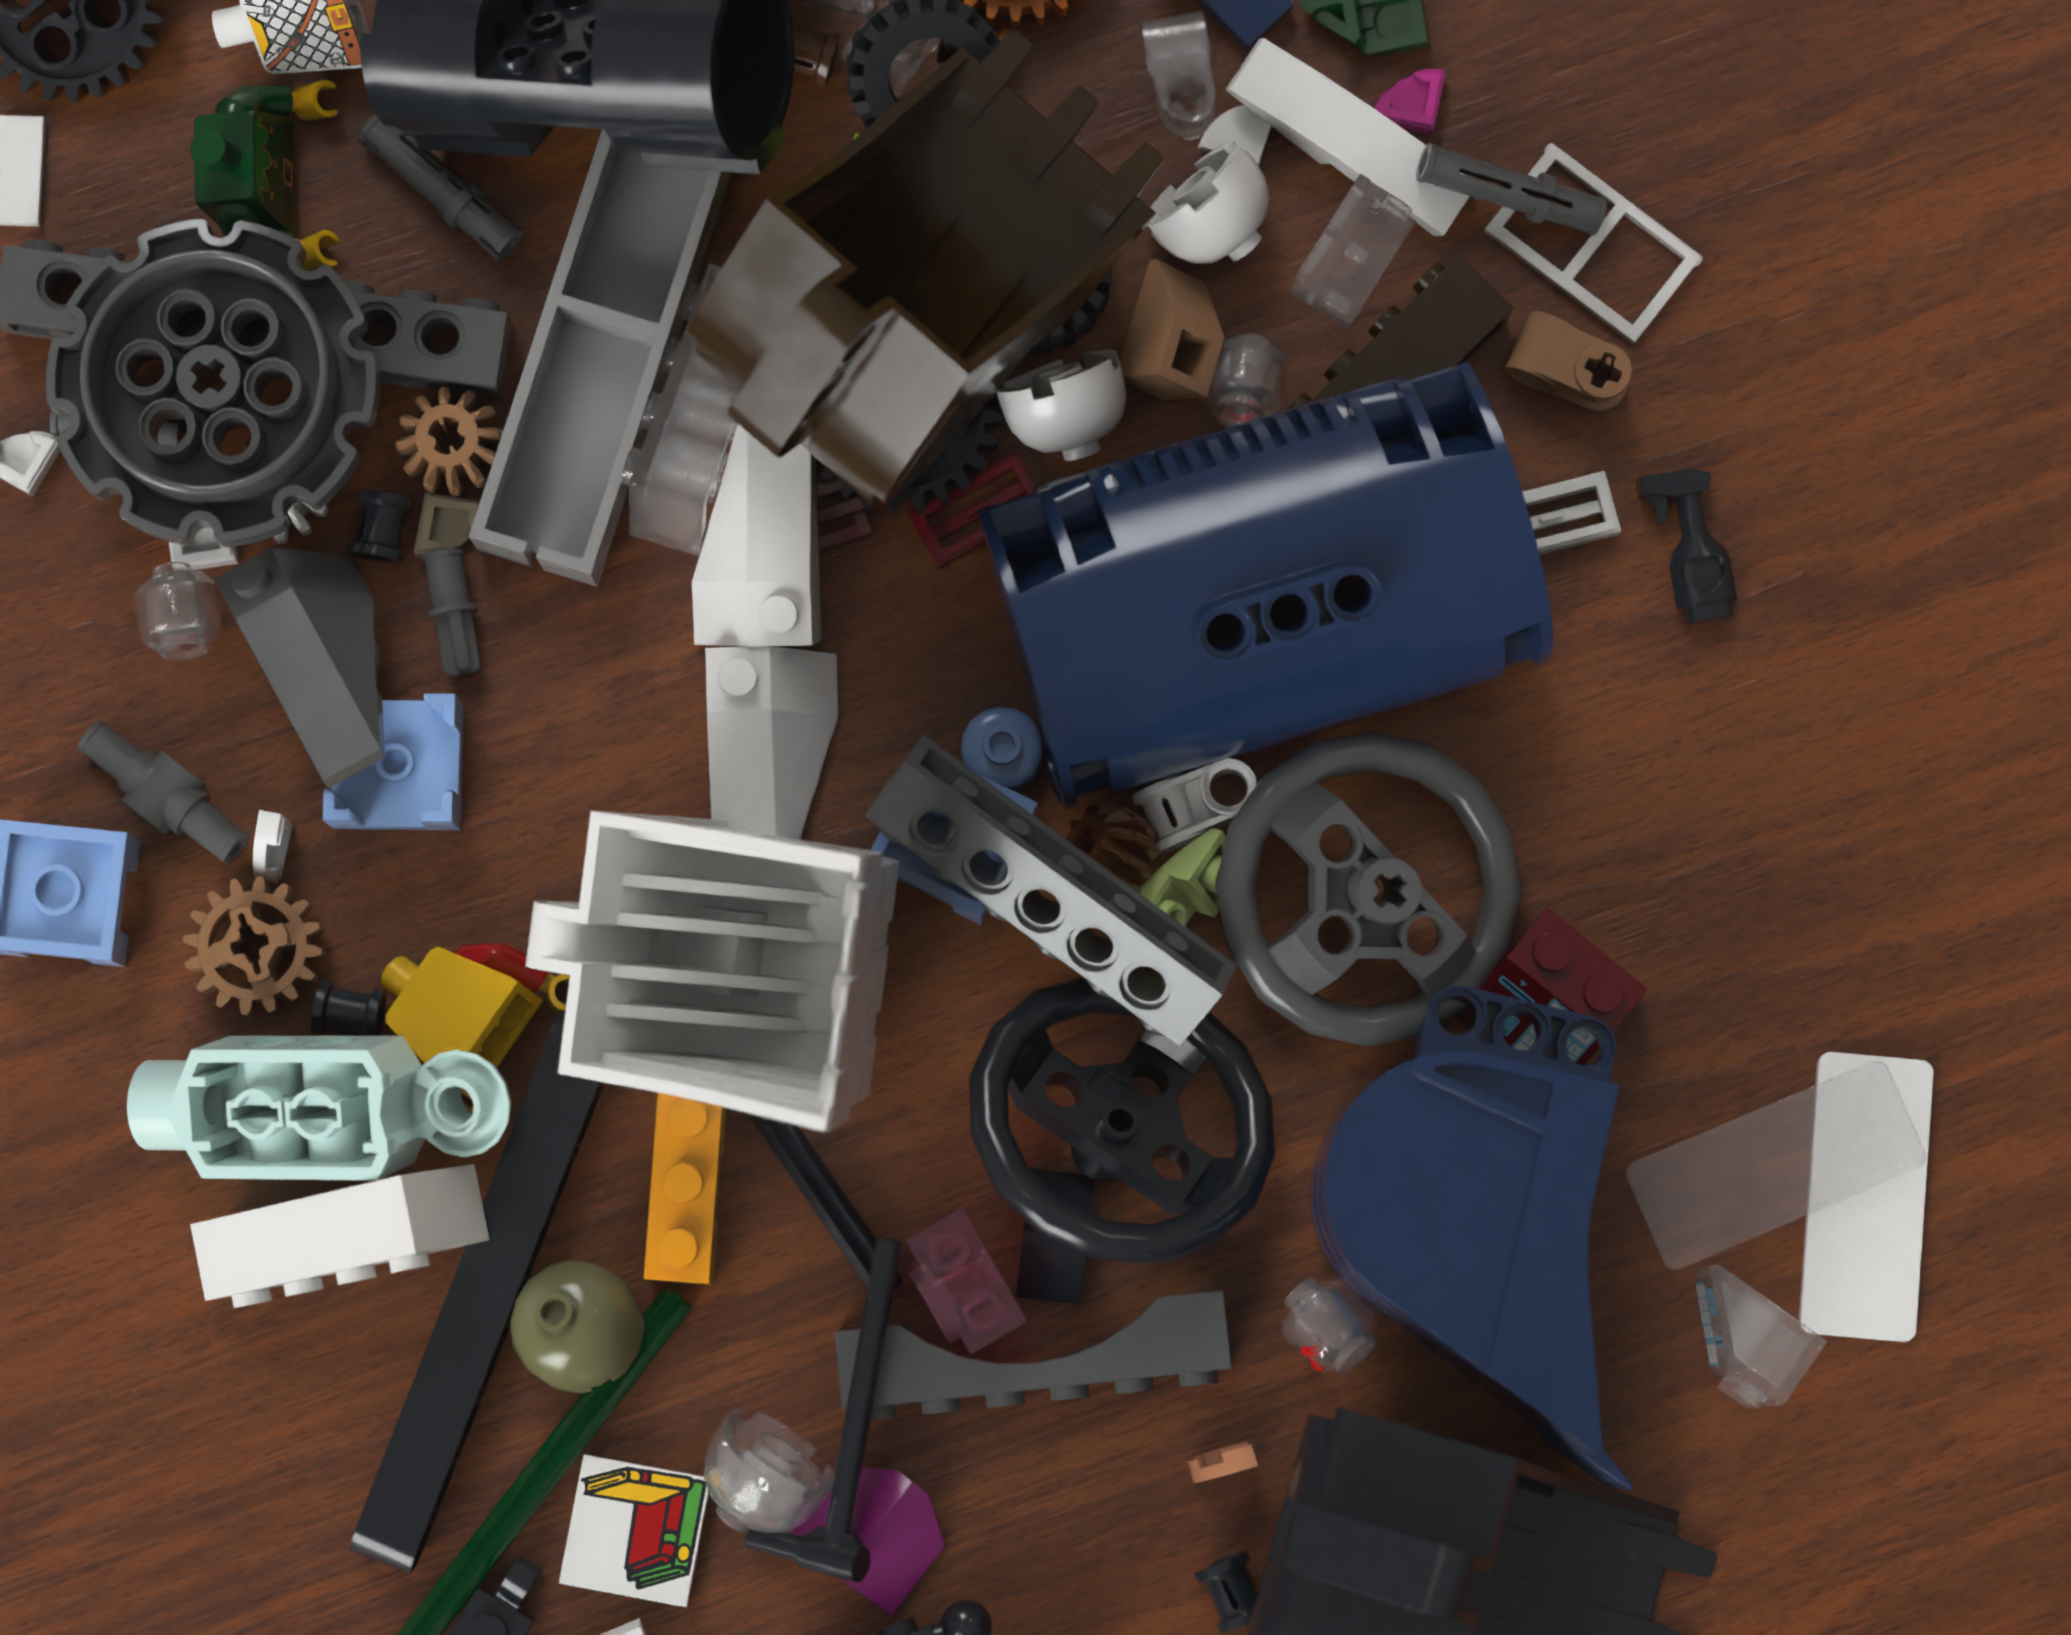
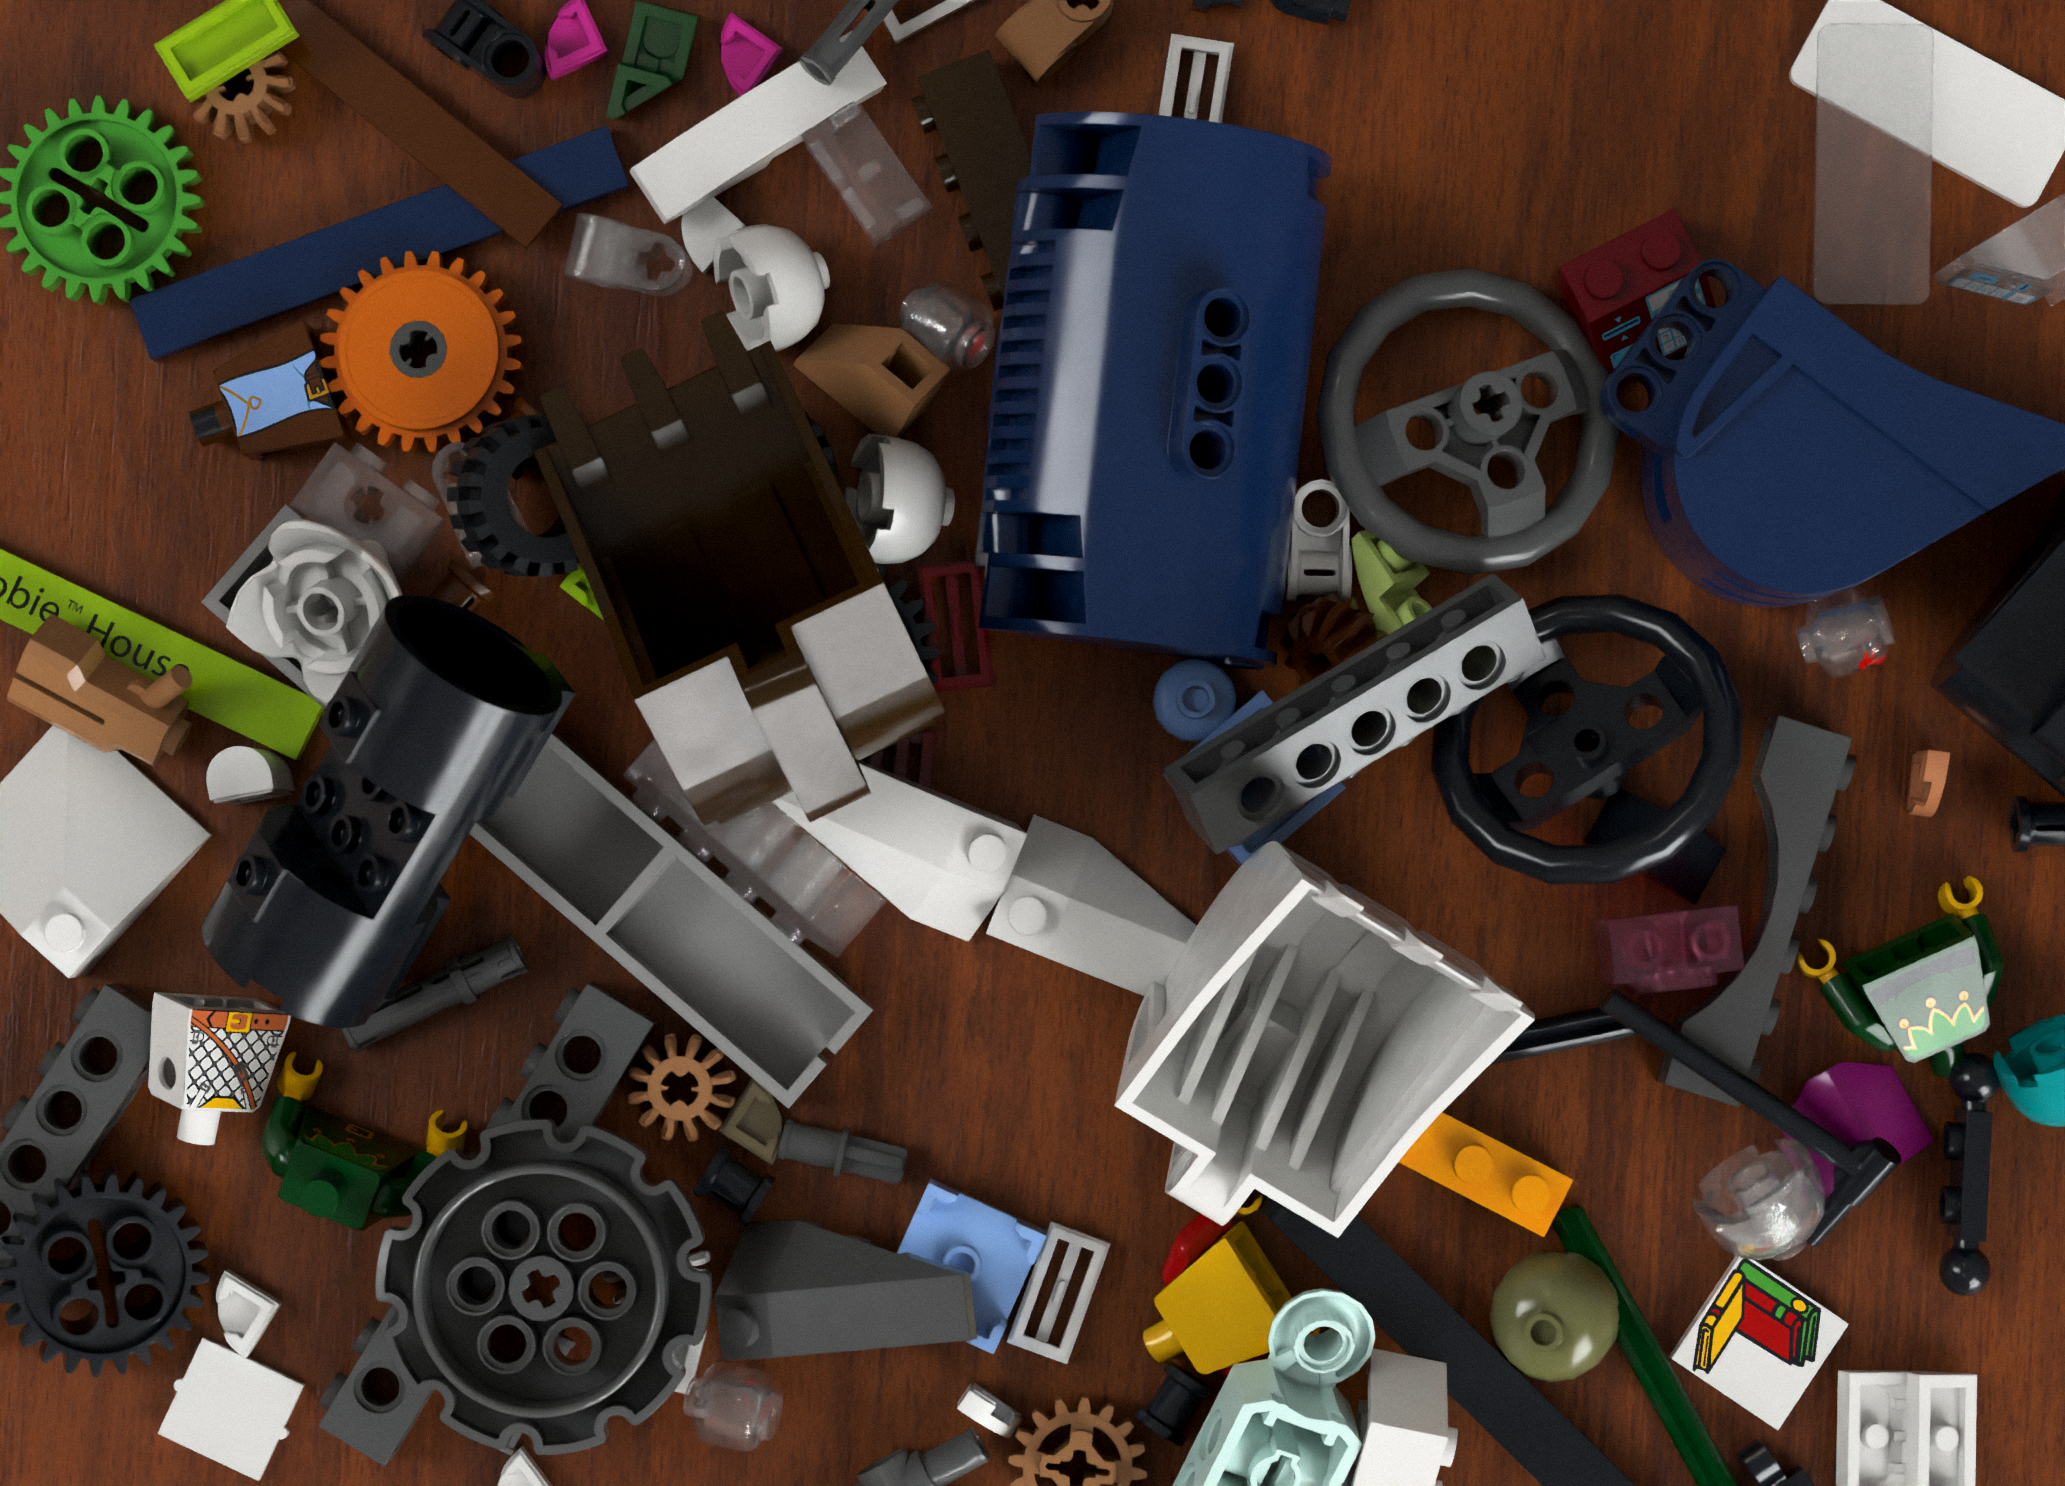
camera: 65 degrees left, 5 degrees up
(82, 143) = (243, 1311): none -> white tile
(462, 861) = (1077, 1240): none -> white tile
(1027, 1536) = (1922, 987): none -> dark green torso

